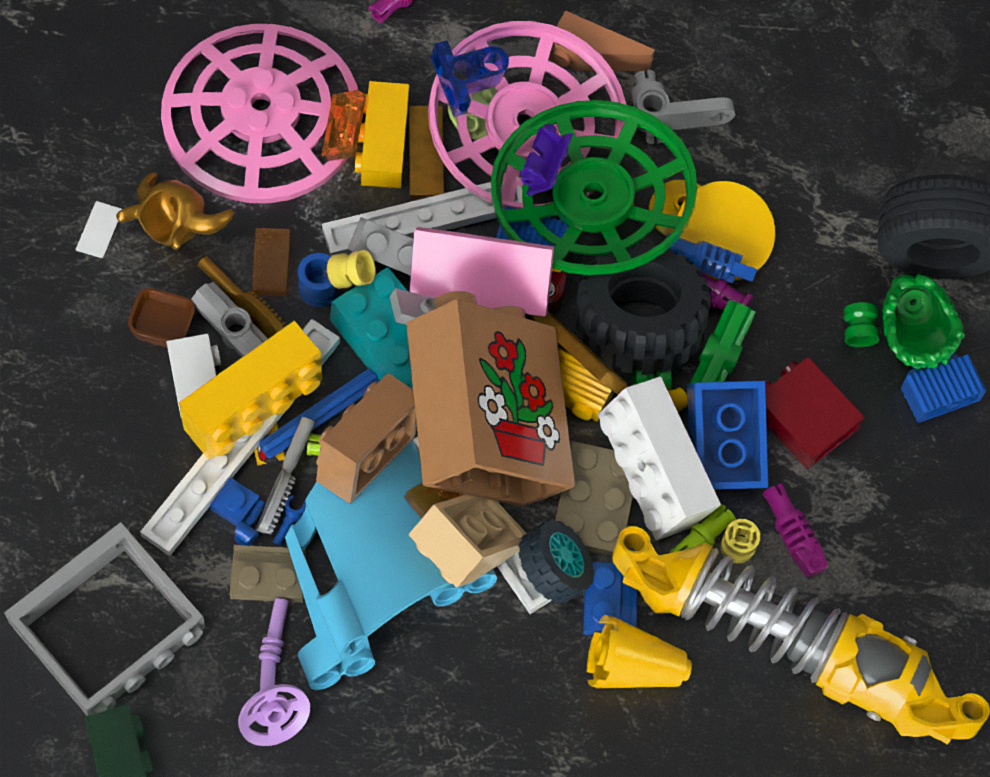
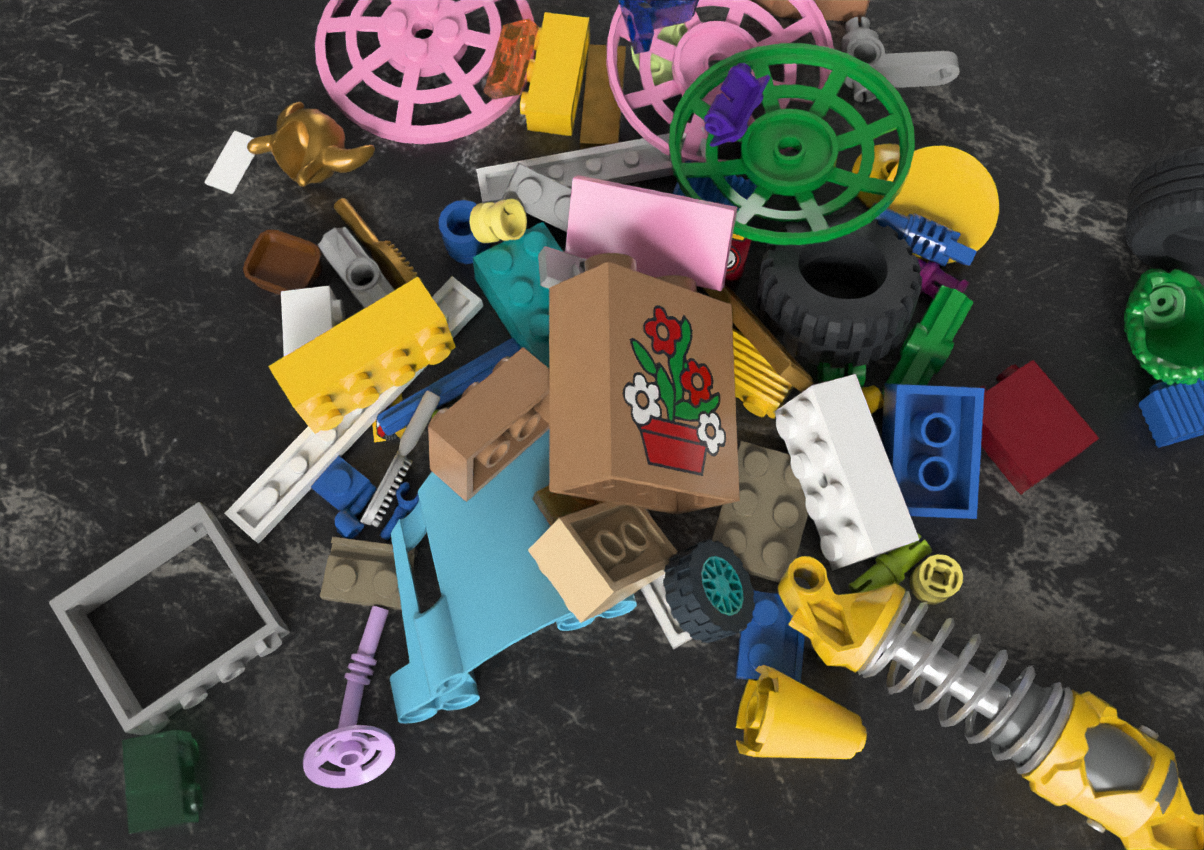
camera: 15 degrees right, 5 degrees up
(271, 261) = (416, 209): clear orange tile -> none
(796, 533) = (1005, 574): magenta hinge -> none
(861, 324) = (1096, 324): green wheel -> none

